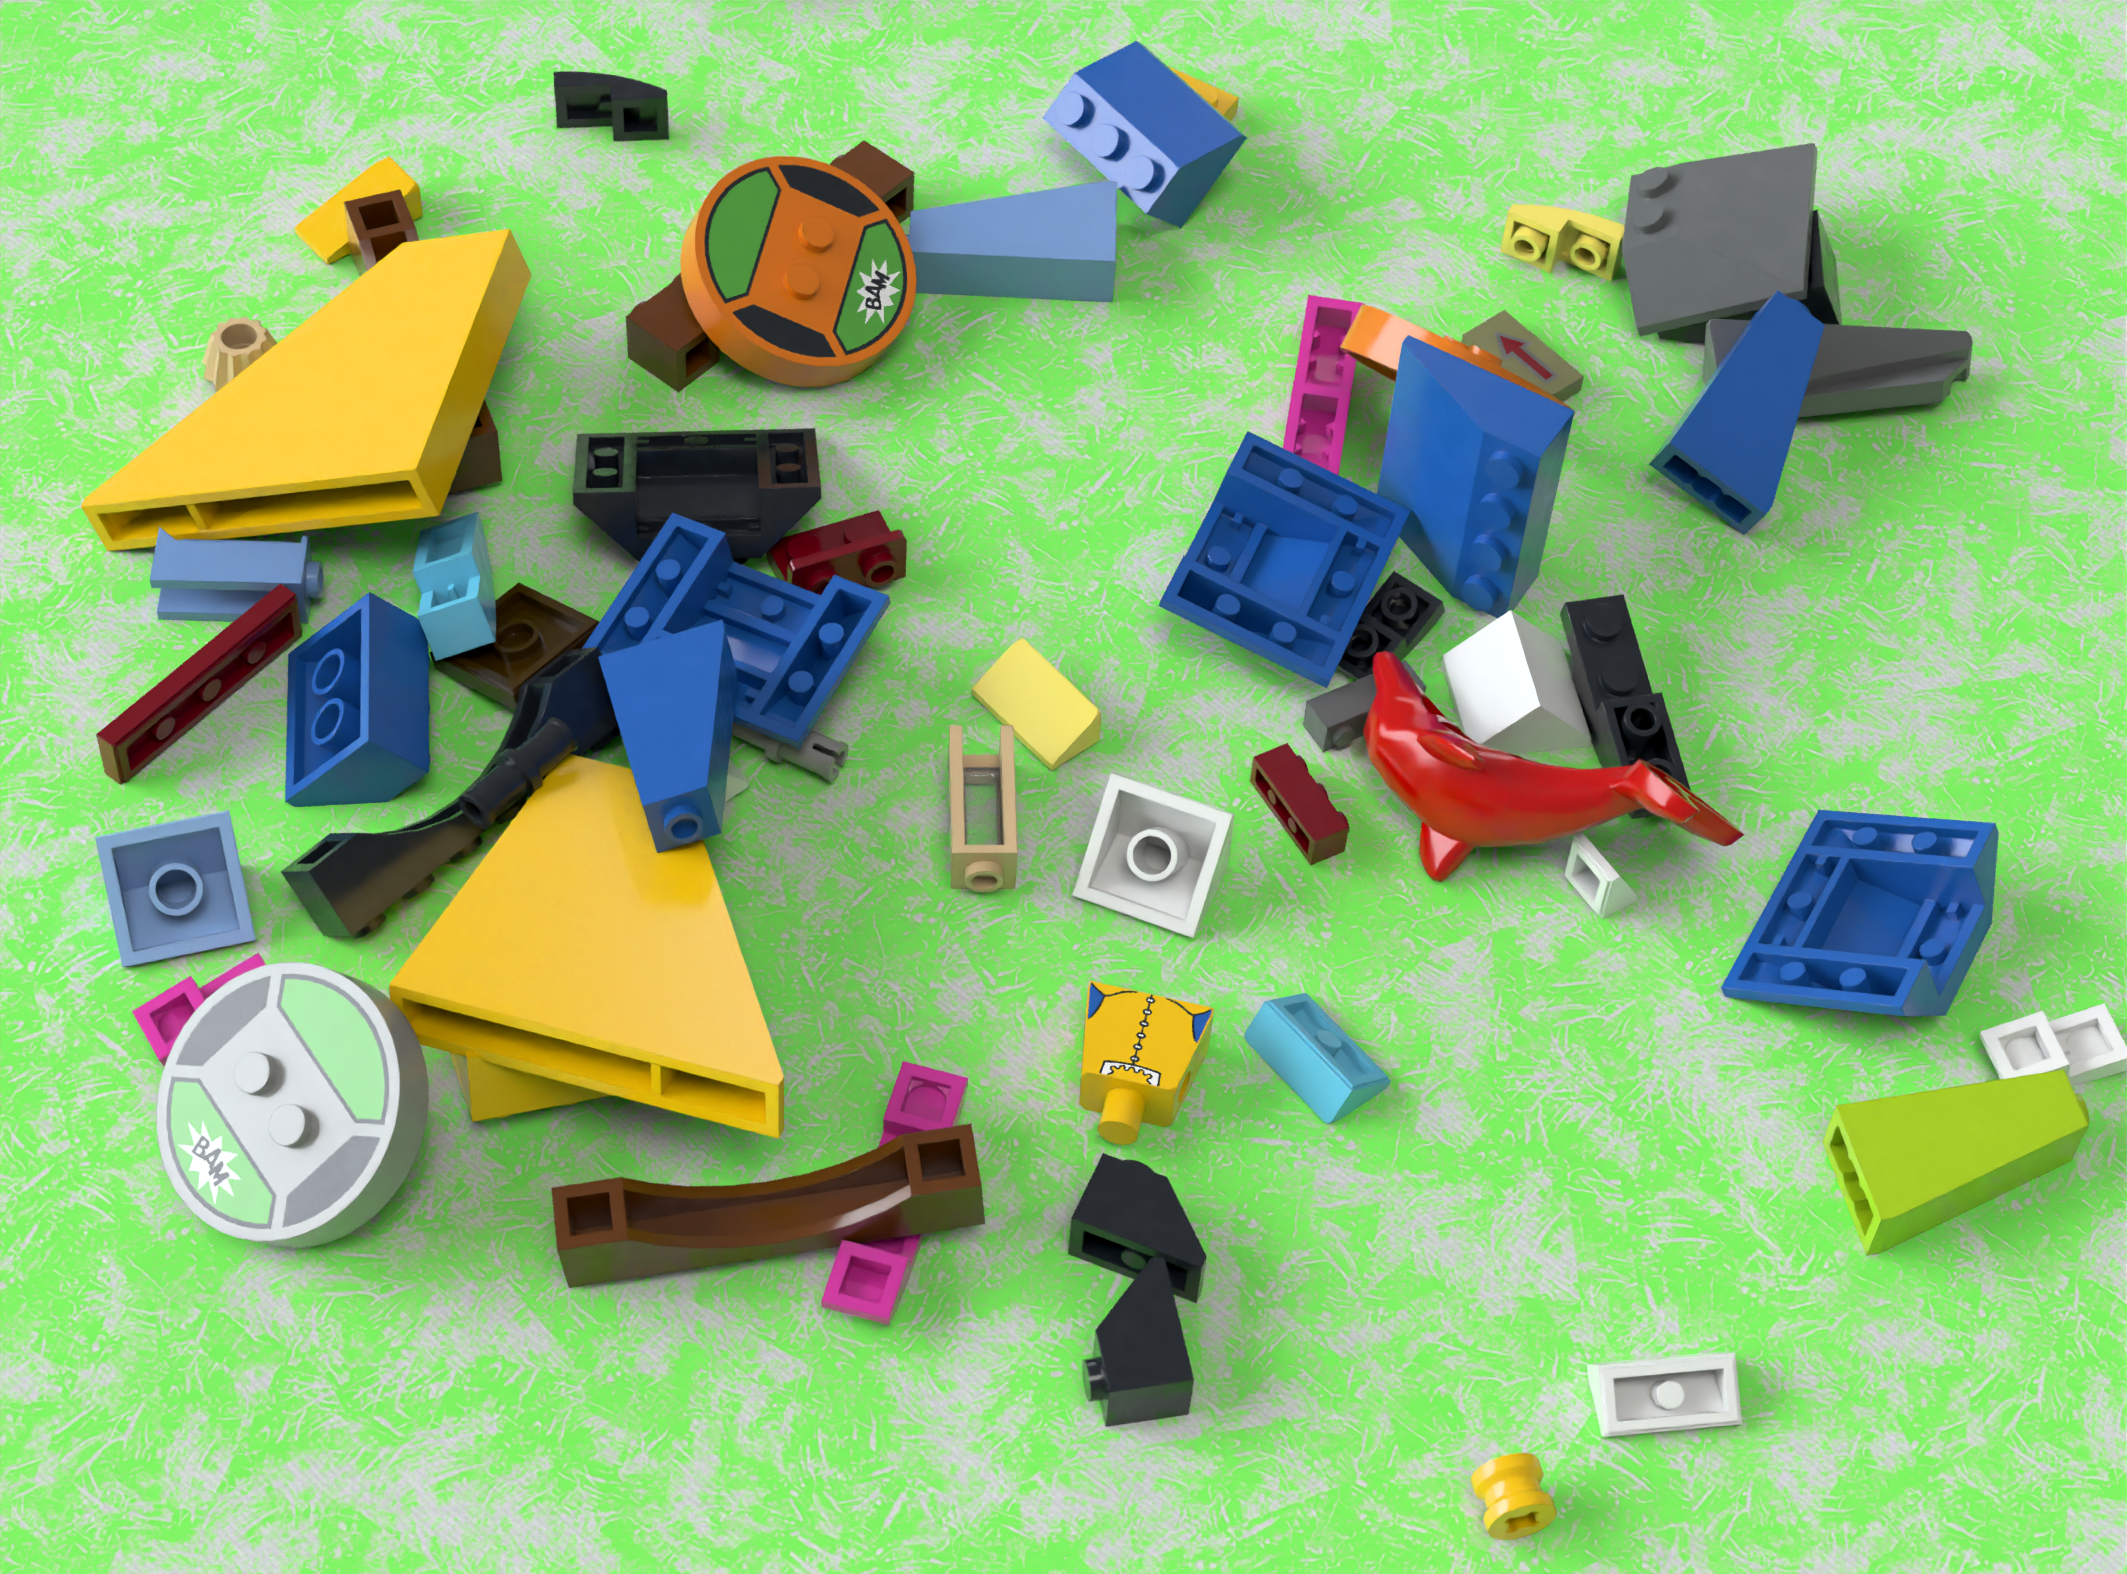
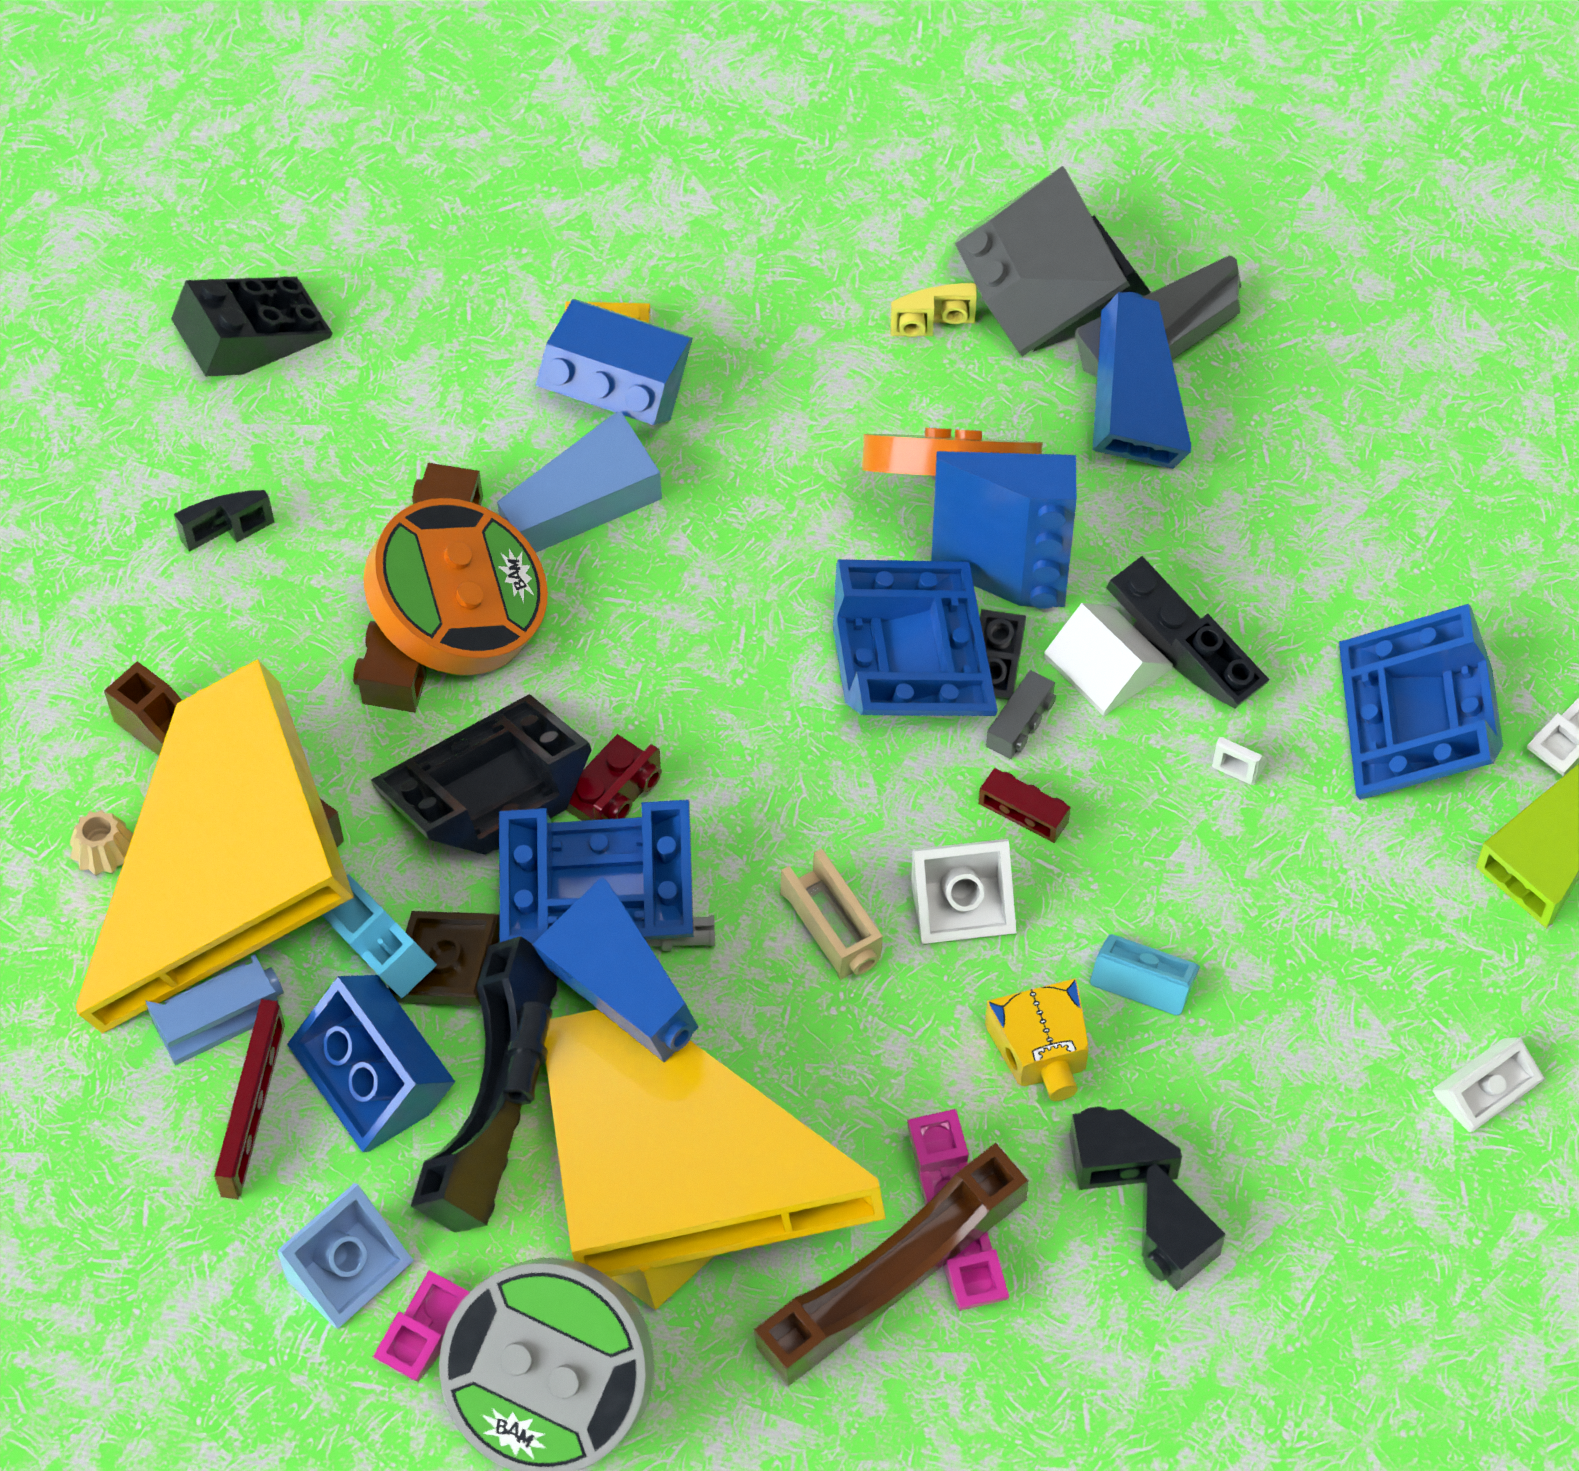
camera: 25 degrees left, 5 degrees up
(327, 228) = (87, 705): yellow slope -> none
(1040, 704) = (814, 821): light yellow slope -> none
(1322, 383) = (844, 494): dark pink slope -> none
(1499, 799) = (1154, 741): red animal -> none
(1513, 1496) = (1450, 1201): yellow wheel -> none
(1525, 355) = (954, 409): olive tile -> none

